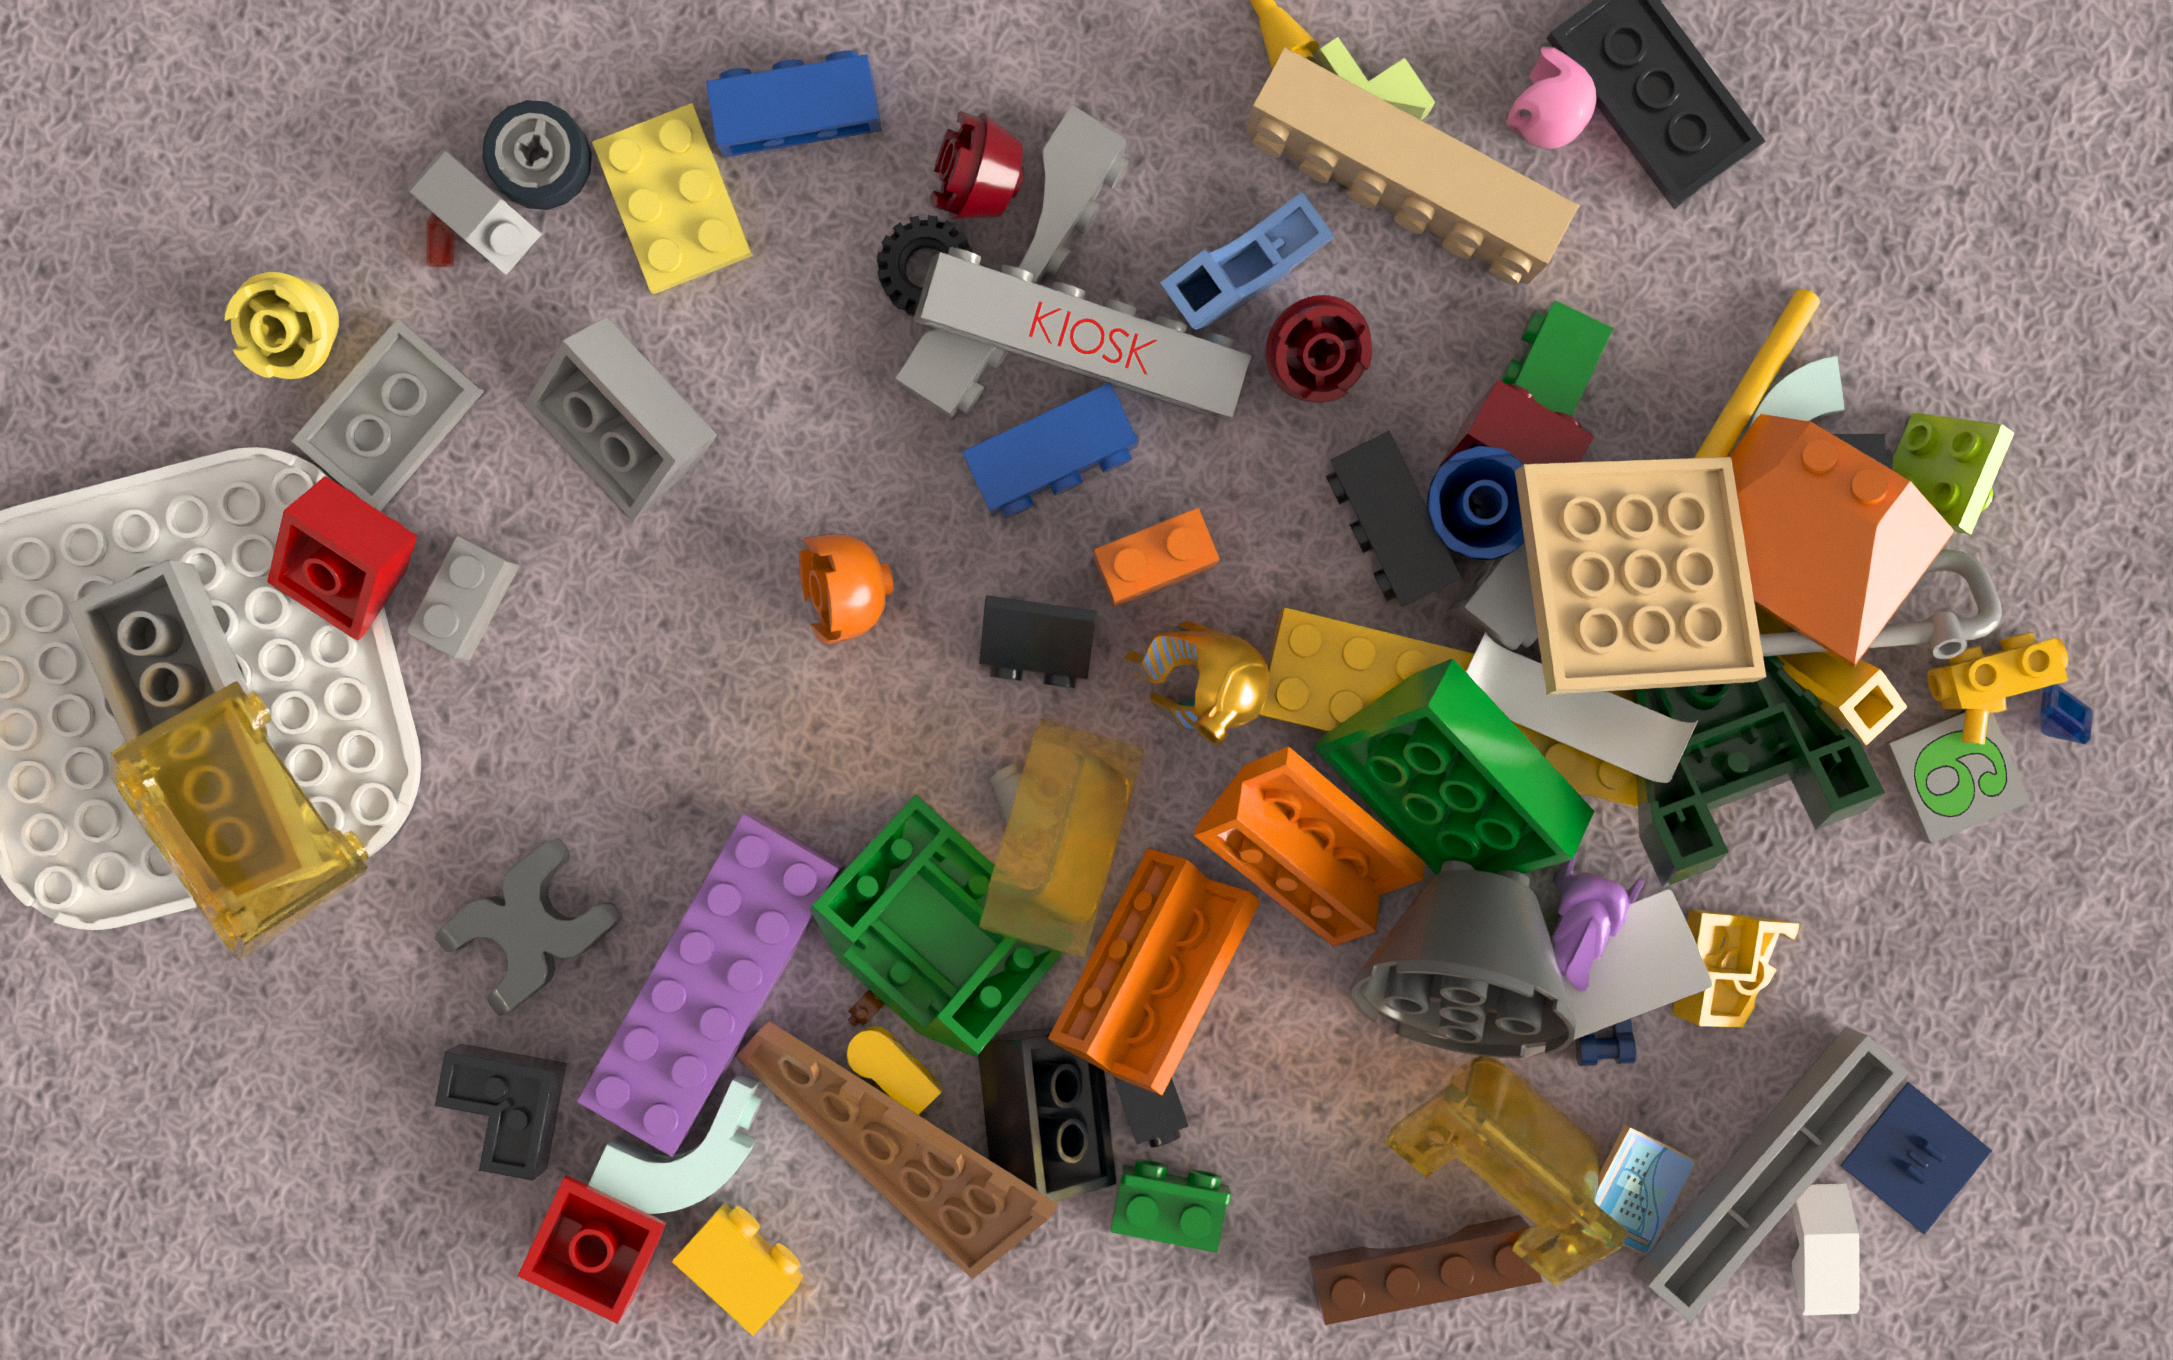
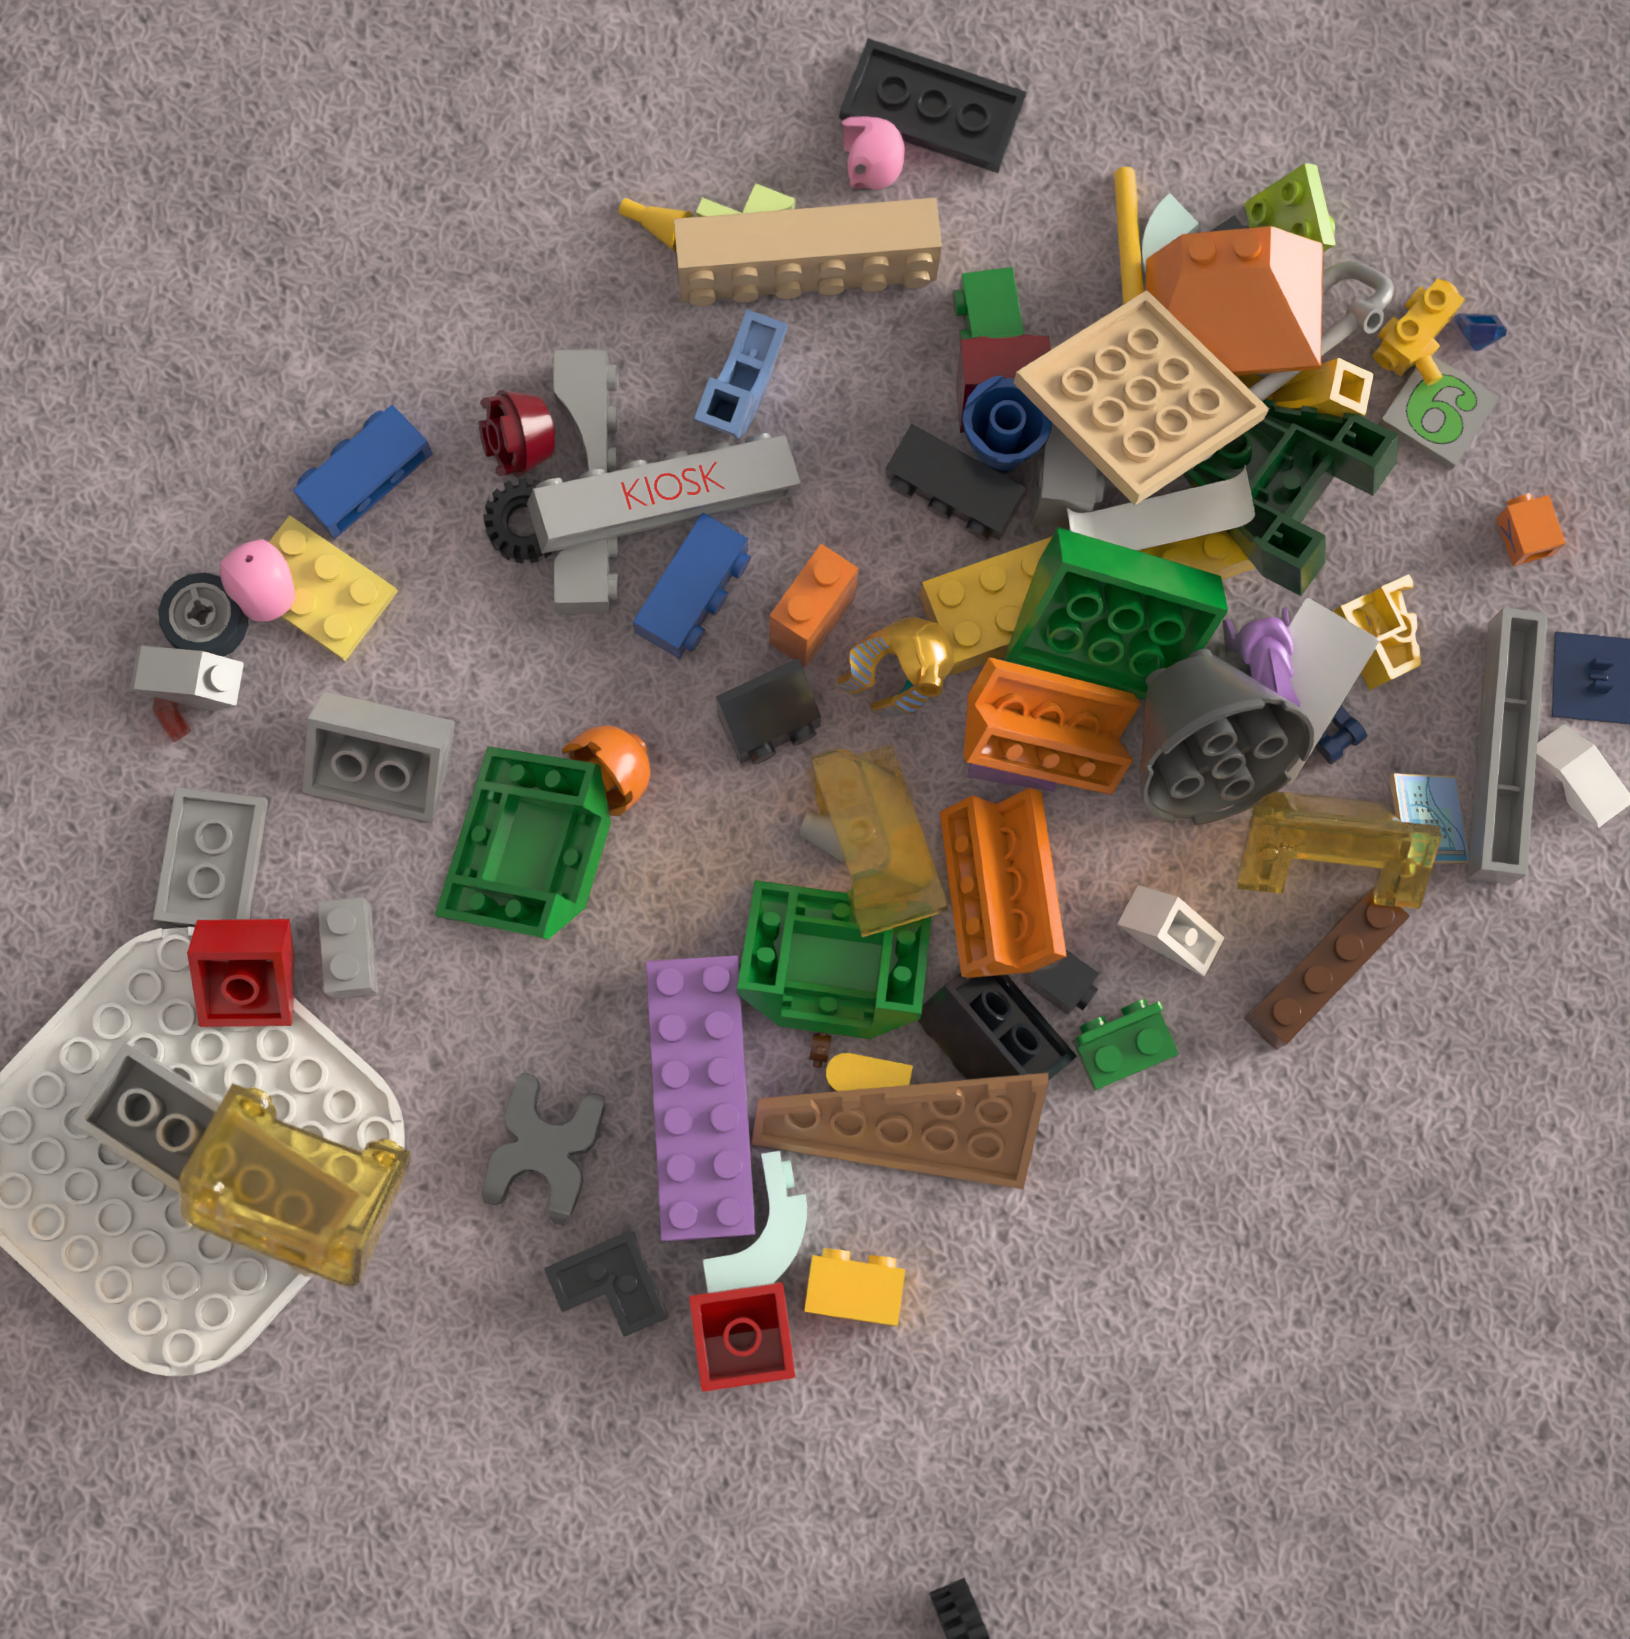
camera: 35 degrees left, 10 degrees down
(282, 325) = (97, 840): light yellow cone -> none
(612, 168) = (258, 580): none -> bright pink helmet
(707, 612) = (527, 844): none -> green slope
(1294, 1125) = (1171, 929): none -> white slope
(1318, 348) = (827, 401): dark red cone -> none
(1959, 962) = (1530, 529): none -> orange brick

